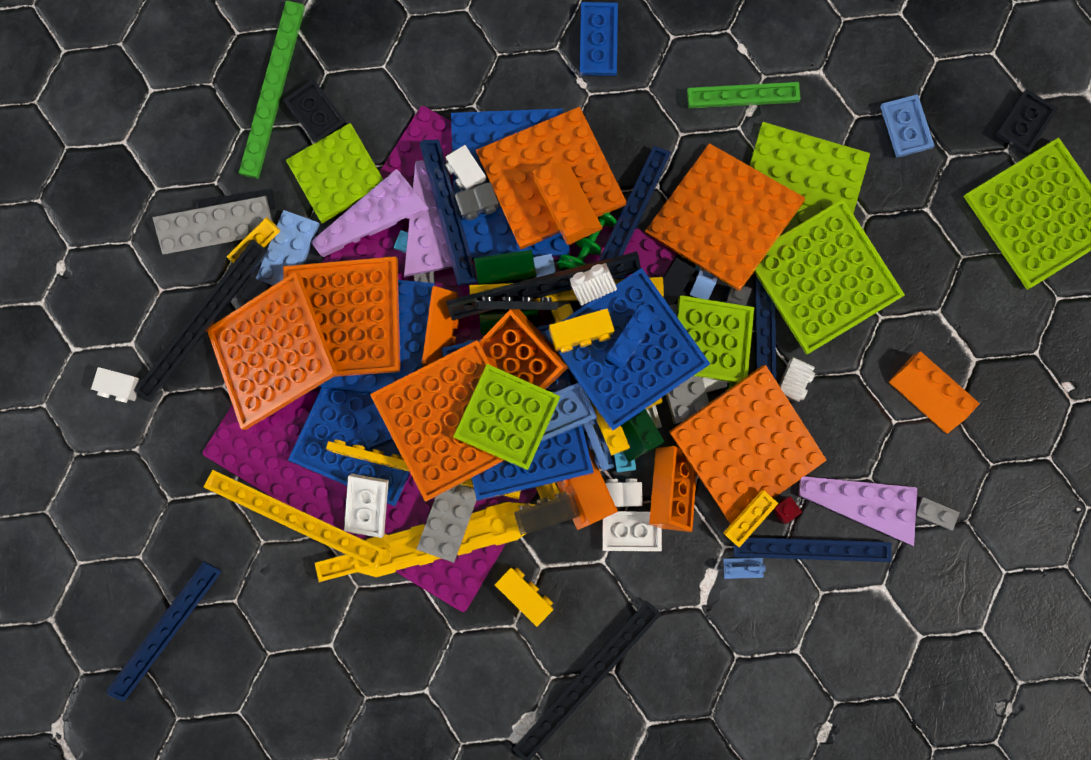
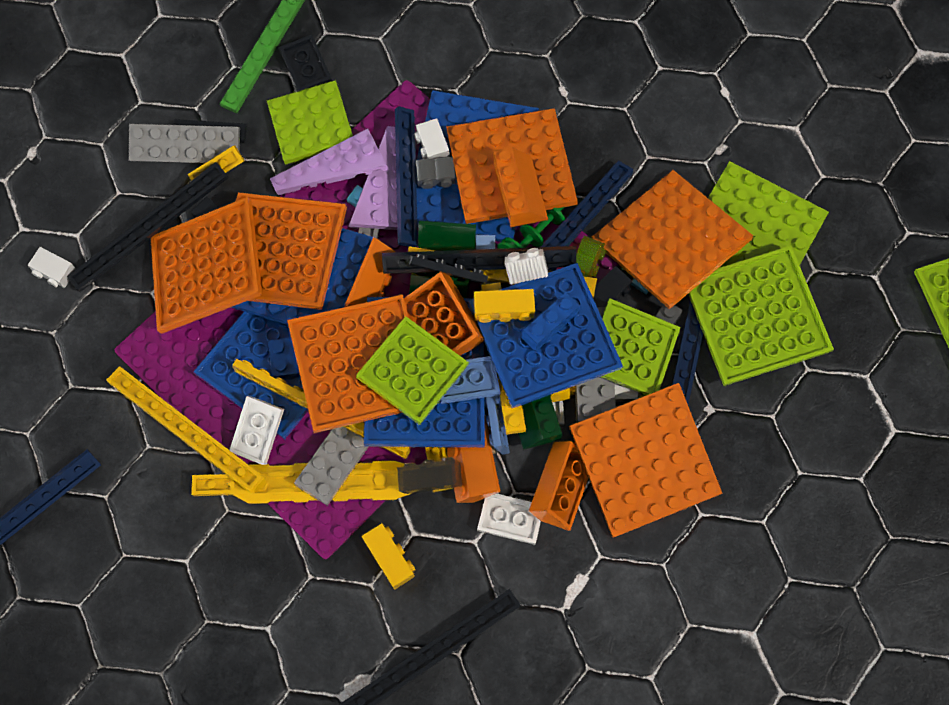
camera: 15 degrees right, 10 degrees down
(287, 247) = (248, 177): light blue plate -> none
(598, 39) = (588, 54): blue plate -> none
(622, 464) = (517, 451): medium azure plate -> none
(625, 494) = (513, 479): white brick -> none
(648, 249) = (588, 256): none -> clear neon green brick
(703, 285) = (637, 296): light blue brick -> none
(743, 95) = (716, 133): bright green plate -> none
(744, 568) = (614, 580): medium blue hinge -> none
(750, 518) = (631, 530): yellow plate -> none
(786, 510) = (670, 531): dark red brick -> none
(796, 379) = (708, 407): white brick -> none
(814, 549) = (689, 578): dark blue plate -> none
(878, 506) = (761, 549): lavender wing -> none
(907, 126) = (870, 194): medium blue plate -> none
(933, 392) = (844, 451): orange slope -> none
(937, 513) = (824, 572): light grey plate -> none

